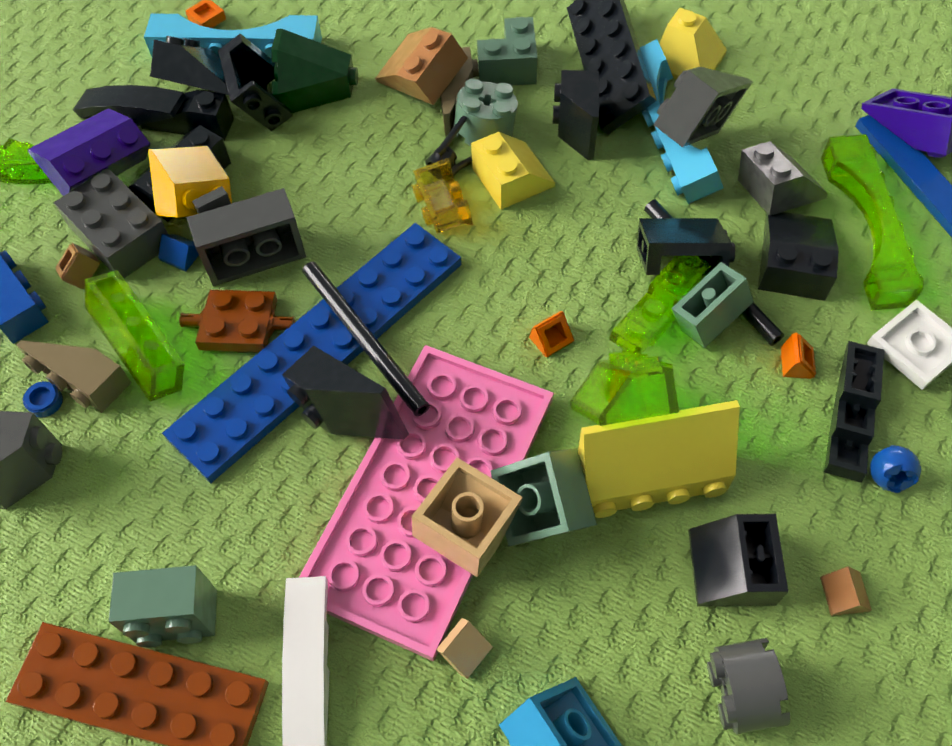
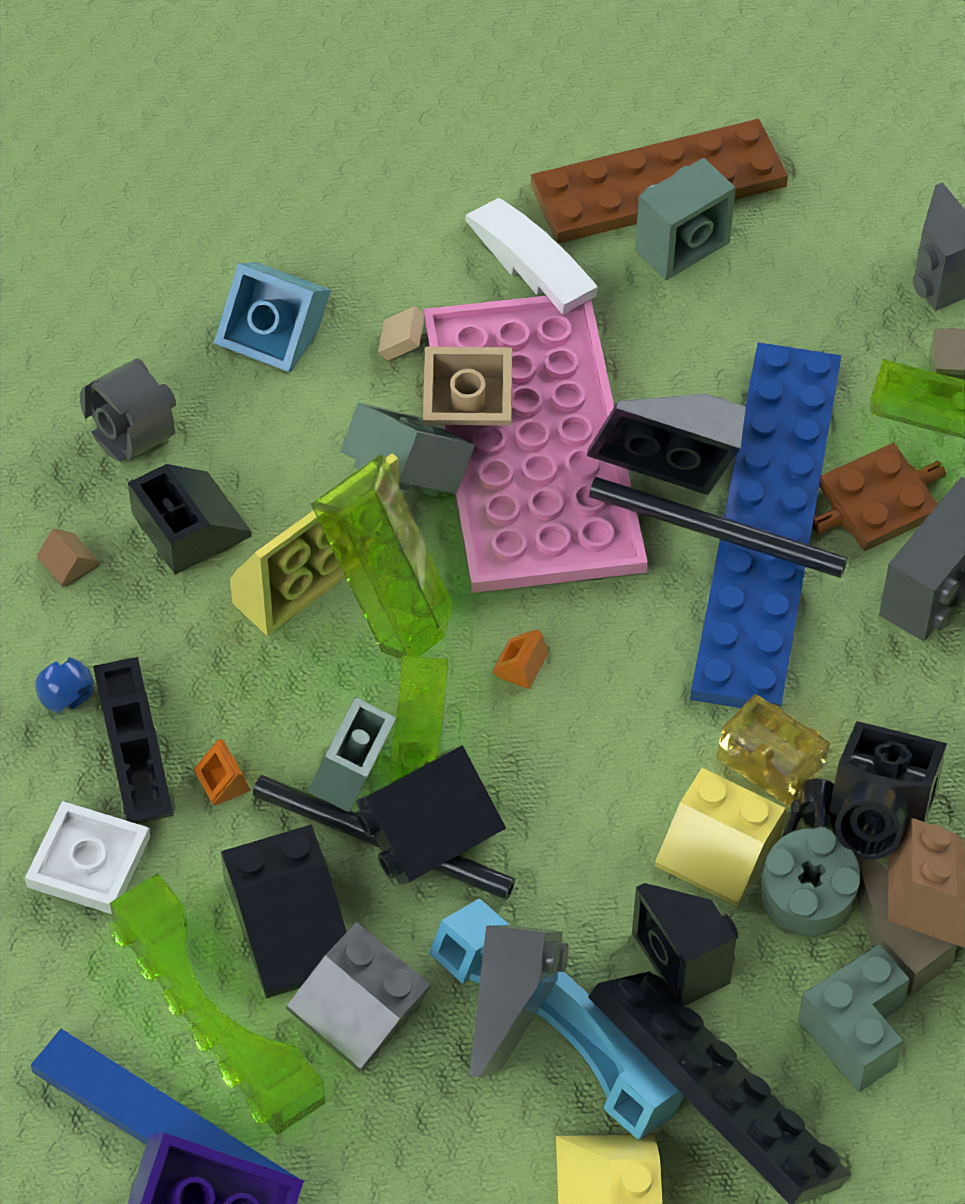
camera: 145 degrees right, 5 degrees down
(407, 125) = (882, 786): none -> black brick

